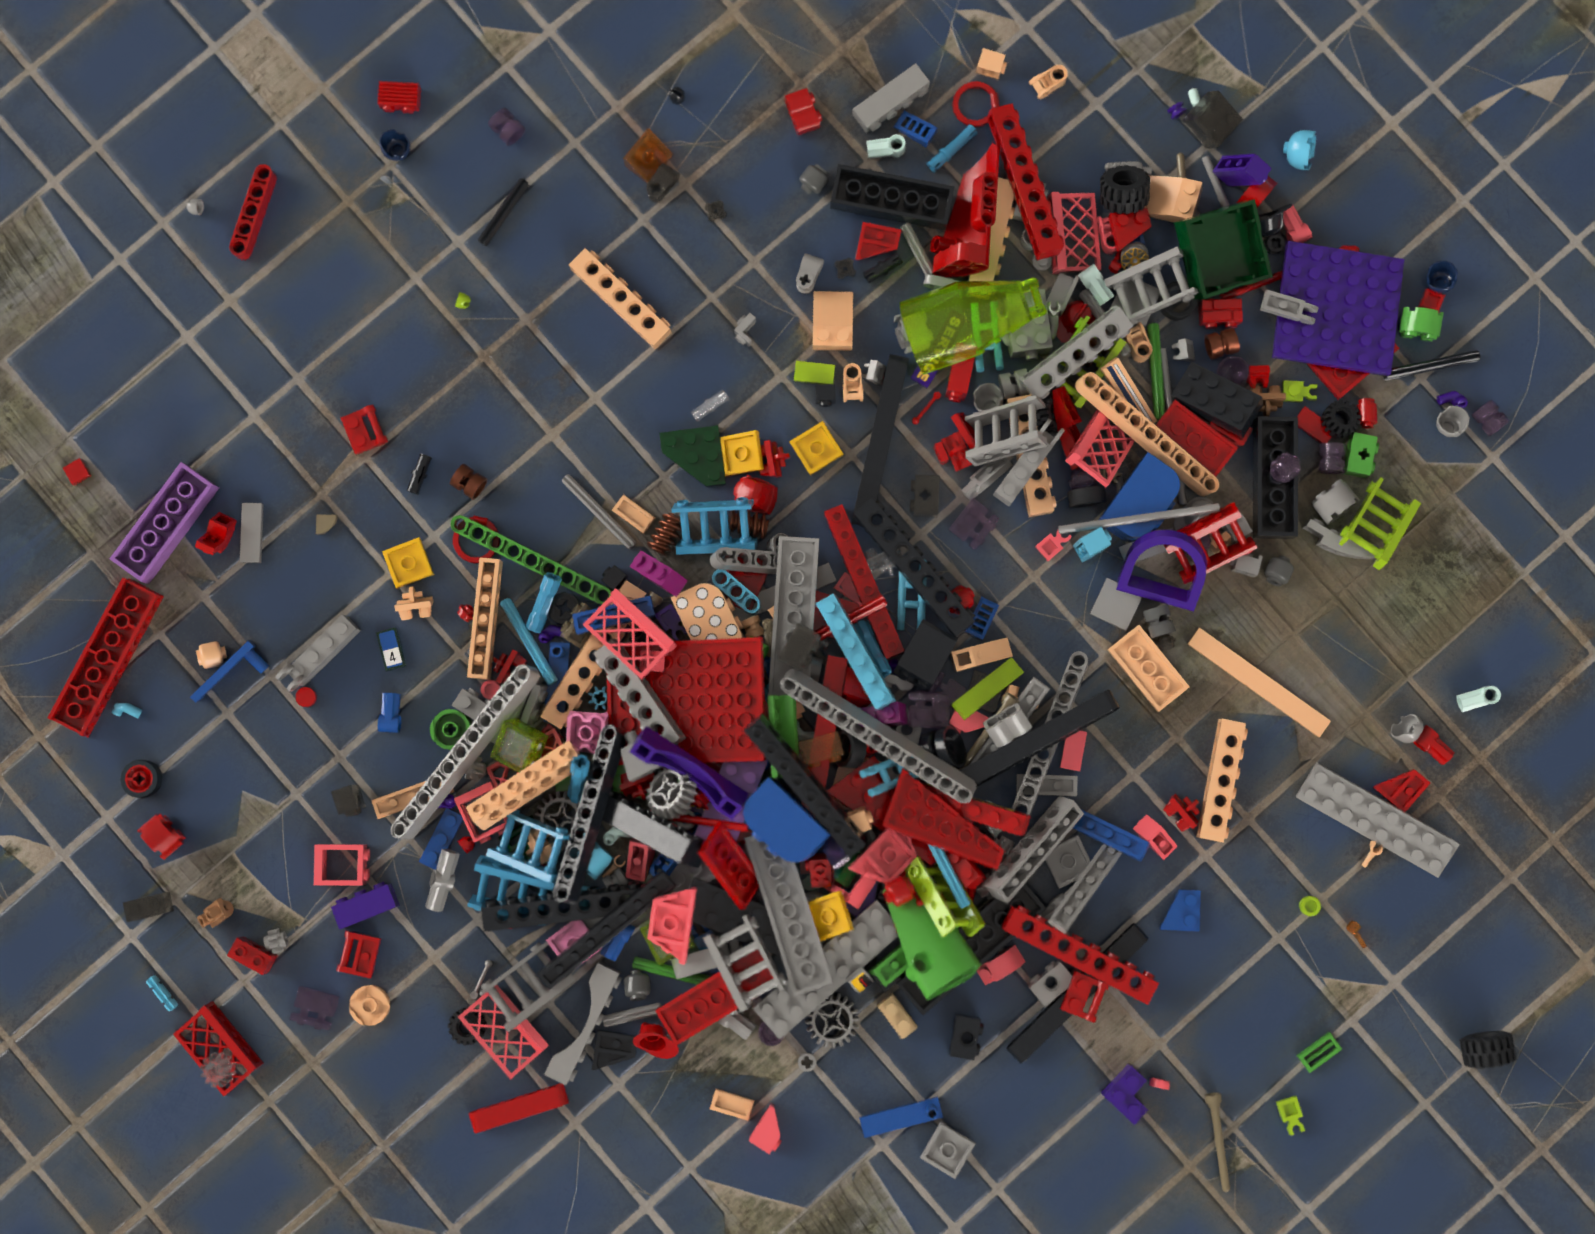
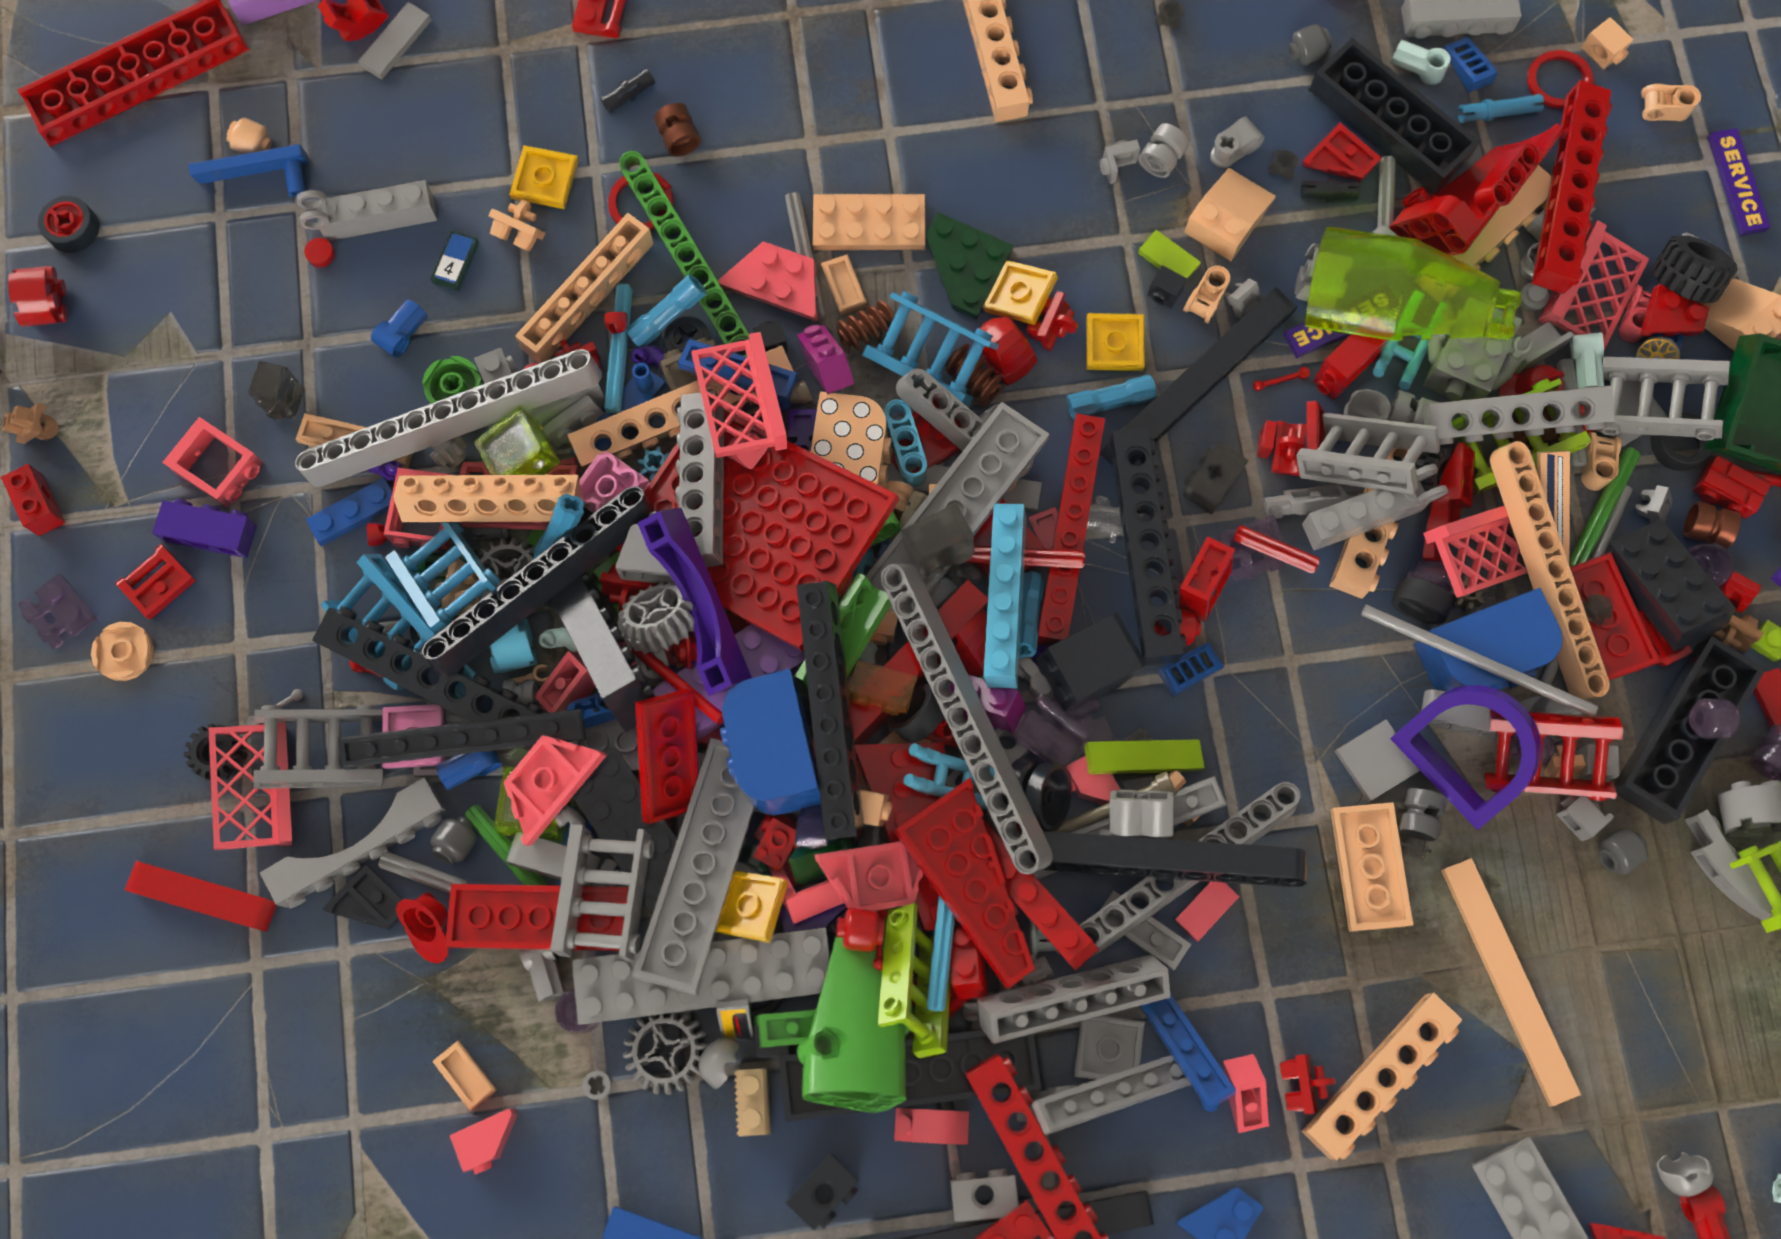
camera: 30 degrees right, 10 degrees down
(128, 708) = (115, 140): medium azure arm -> none
(275, 941) = (72, 501): light grey gear -> none
(325, 523) = (483, 79): dark tan tile -> none
(442, 880) = (315, 556): light grey piece -> none
(466, 612) = (567, 268): red plate -> none
(519, 628) = (616, 322): none -> red hinge
(592, 538) = (776, 279): none -> coral wing
(622, 464) = (868, 221): none -> light nougat plate
(697, 931) = (570, 815): none -> light grey arm
(710, 405) = (1018, 217): clear pin -> none
(769, 307) = (1163, 150): none -> light grey wheel
(845, 474) = (1133, 392): none -> dark azure axle
(862, 1007) = (715, 1057): none -> light grey hair
(920, 605) = (1103, 587): medium azure piece -> none
(957, 557) = (1205, 576): none -> red window
(981, 654) = (1161, 709): light nougat slope -> none
(988, 518) = (1276, 549): none -> axle
(1051, 545) = (1337, 635): coral plate -> none
(1092, 544) = (1395, 658): medium azure brick -> none
(1115, 265) = (1627, 351): red hand -> none
(1118, 107) = (1738, 182): none -> dark purple tile
(1186, 440) = (1598, 608): none -> clear smoke plate

